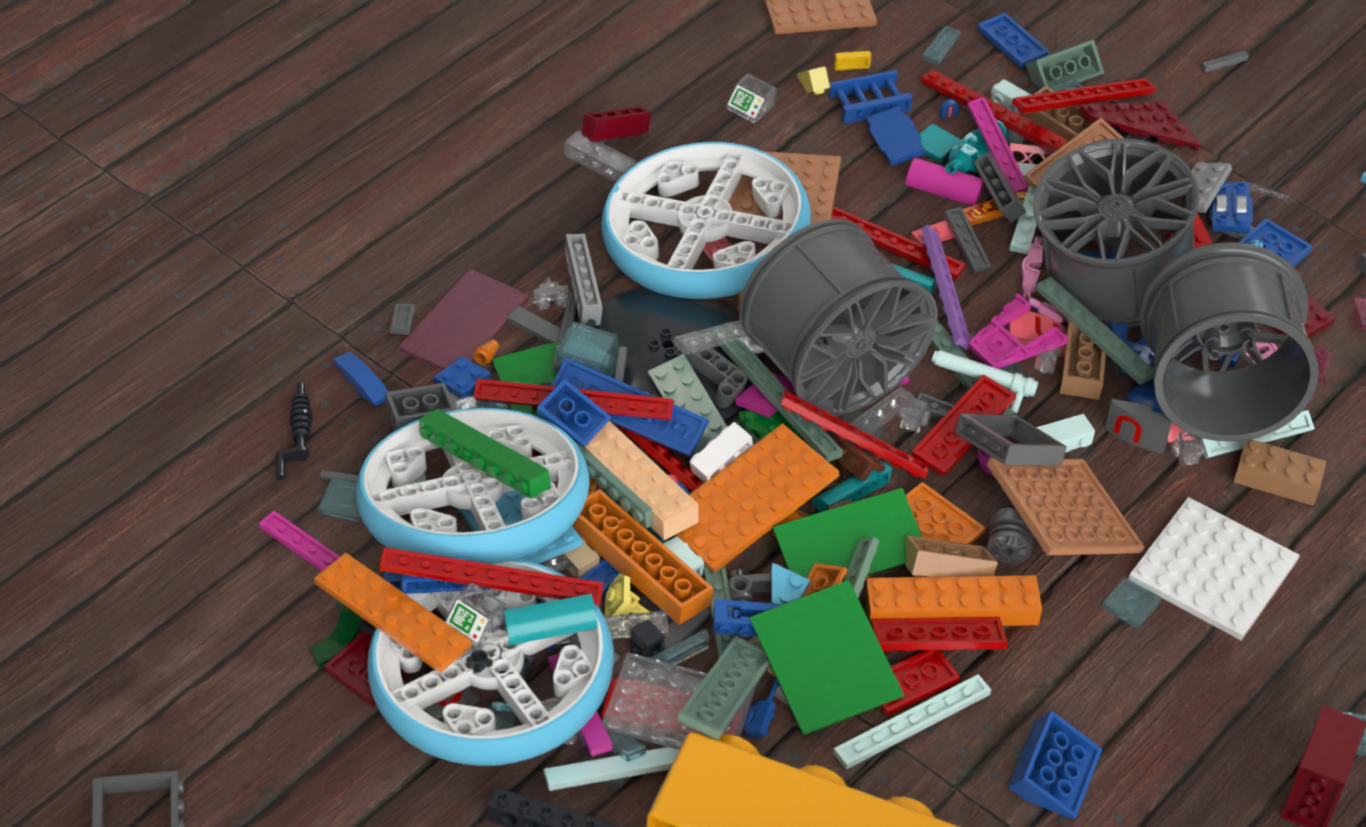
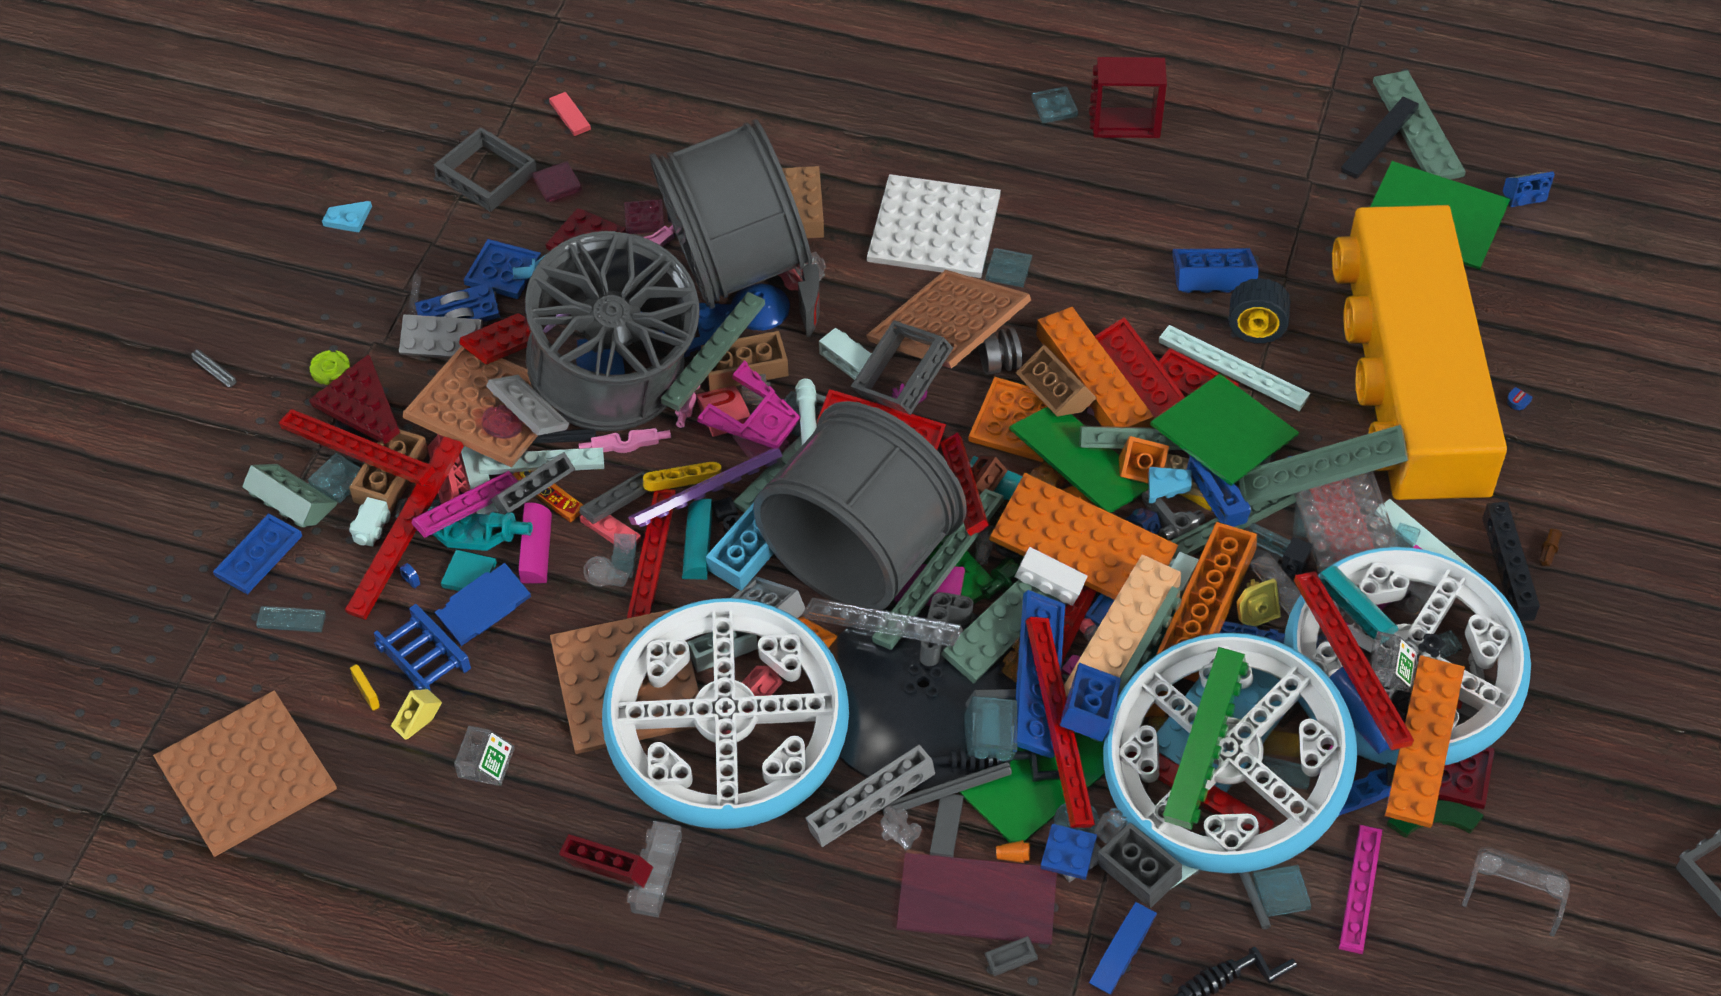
camera: 110 degrees left, 5 degrees up
(245, 659) = (1553, 881): none -> clear windscreen
(757, 565) = (1145, 519): none -> dark blue bracket
(892, 206) = (604, 573): none -> clear piece
(904, 227) = (624, 552): none -> clear light blue slope
(964, 755) = (1259, 310): none -> black wheel
(973, 284) = (662, 479): none -> yellow beam
(1199, 123) = (328, 366): none -> lime tile

